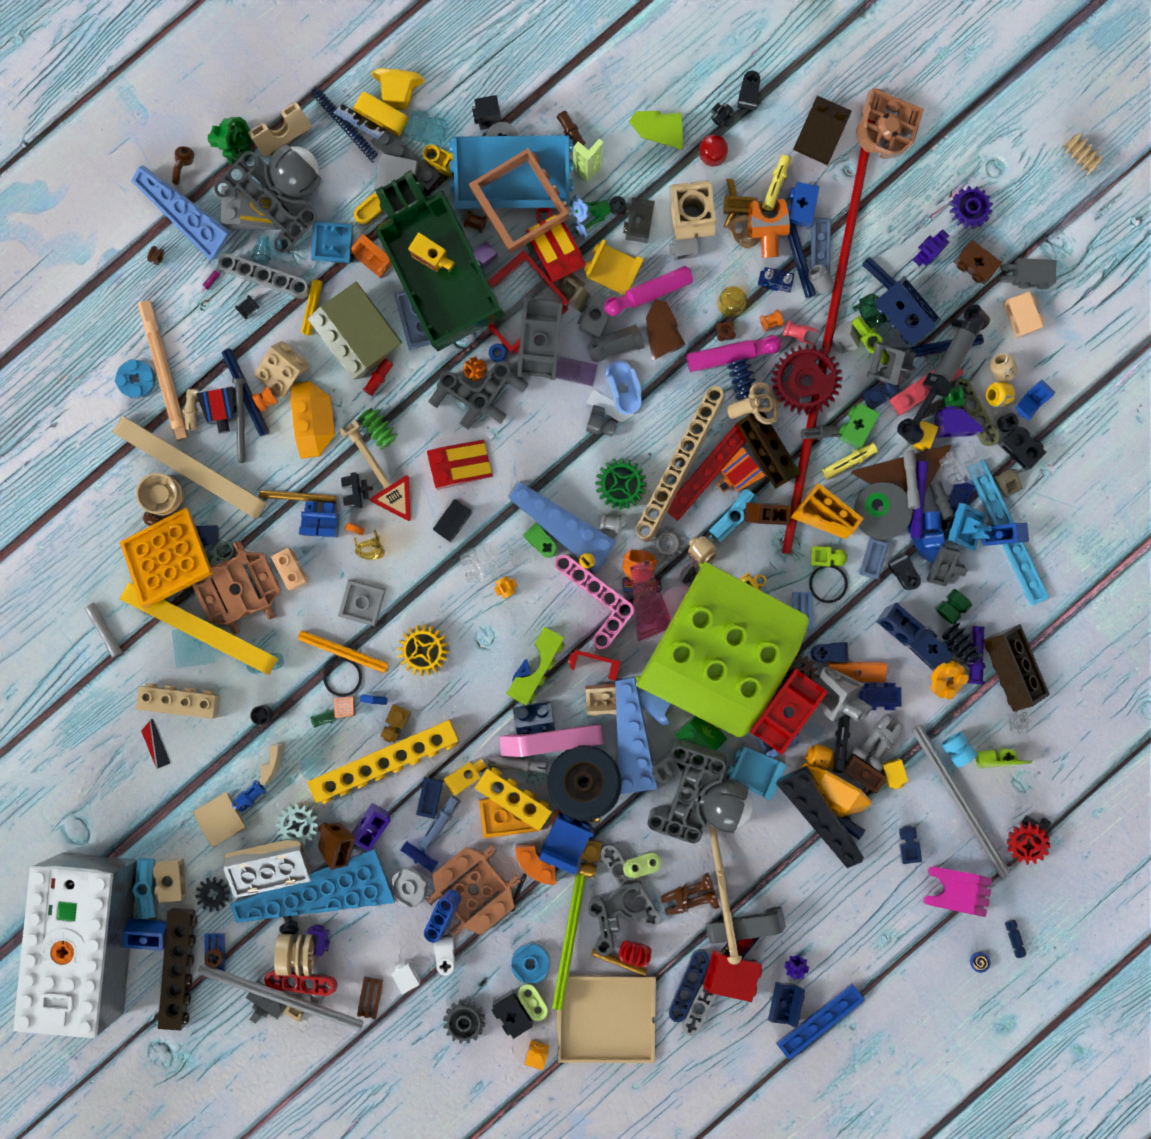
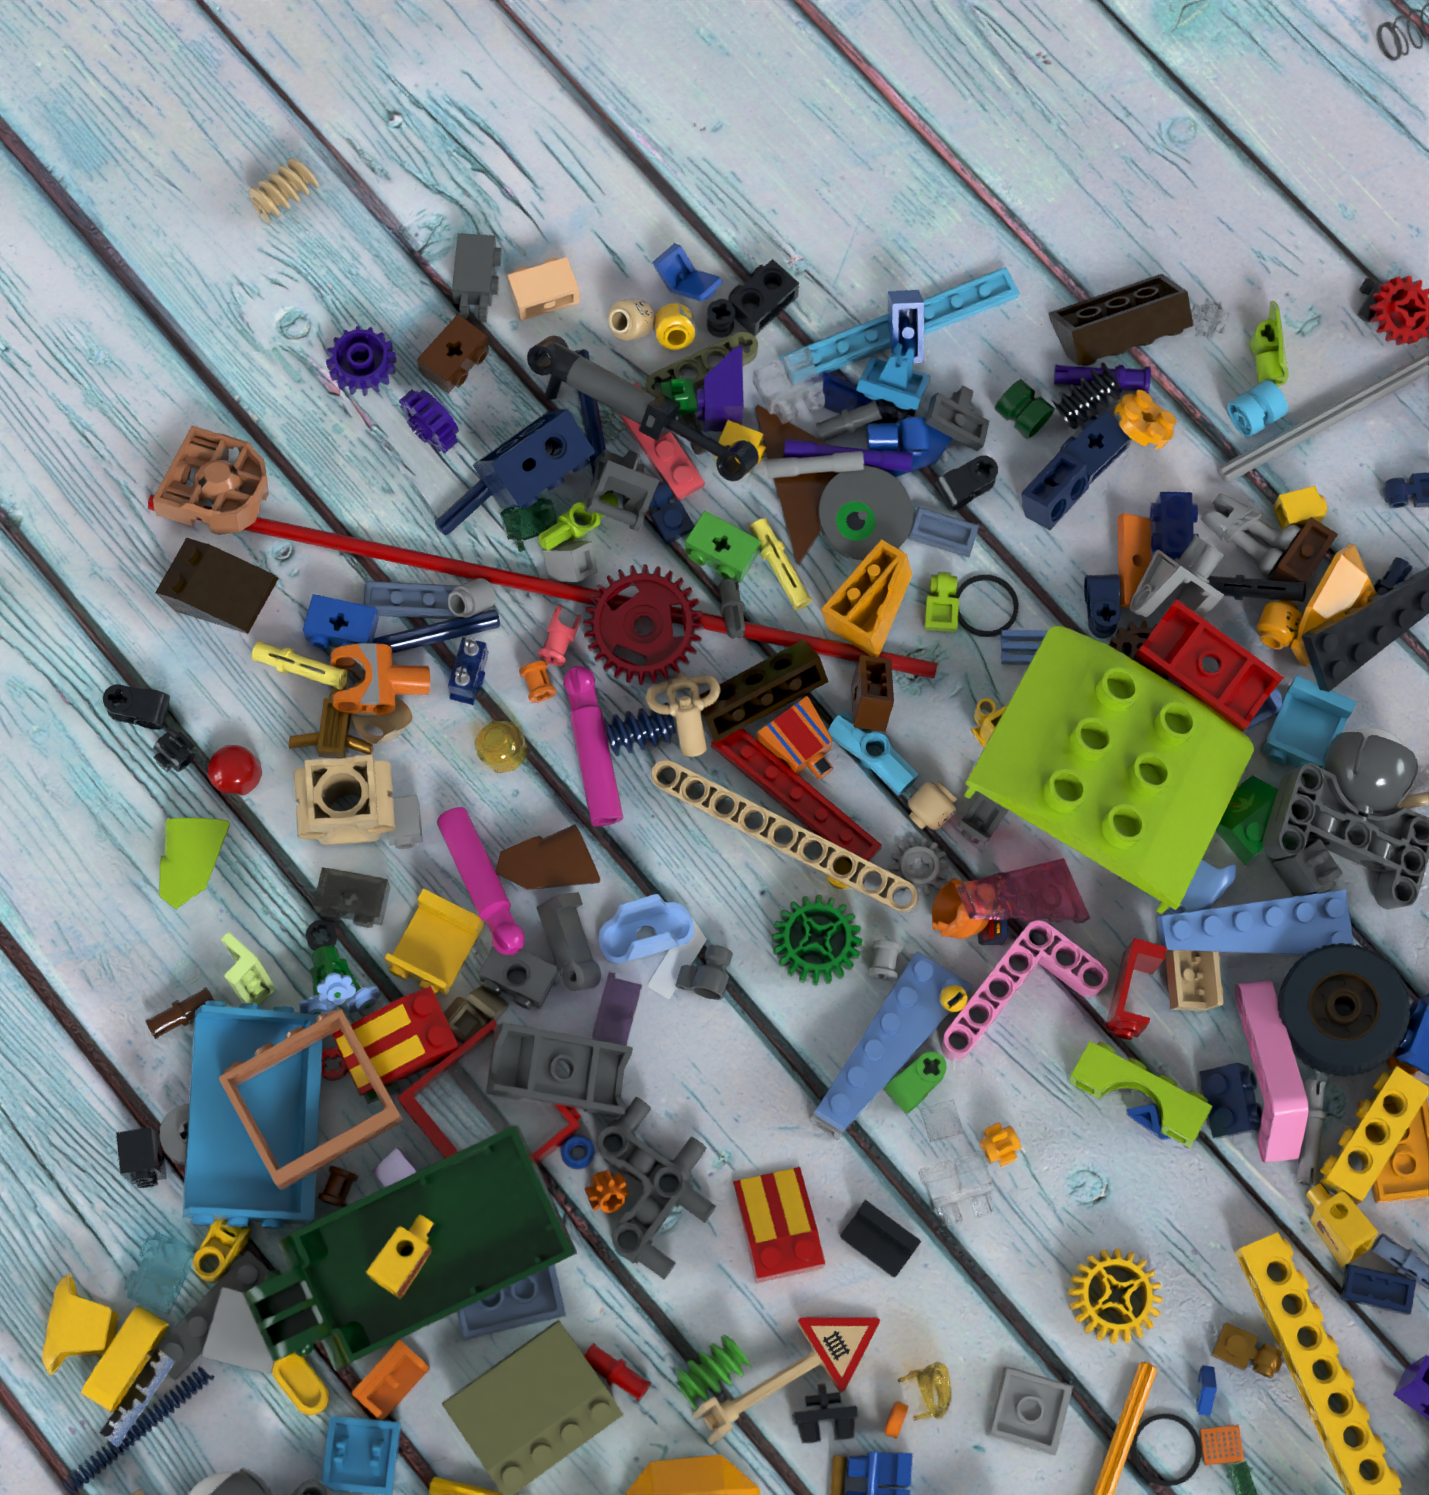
camera: 95 degrees left, 15 degrees down
(729, 326) = (557, 750): copper plate -> none
(1008, 482) = (817, 322): dark tan slope -> none

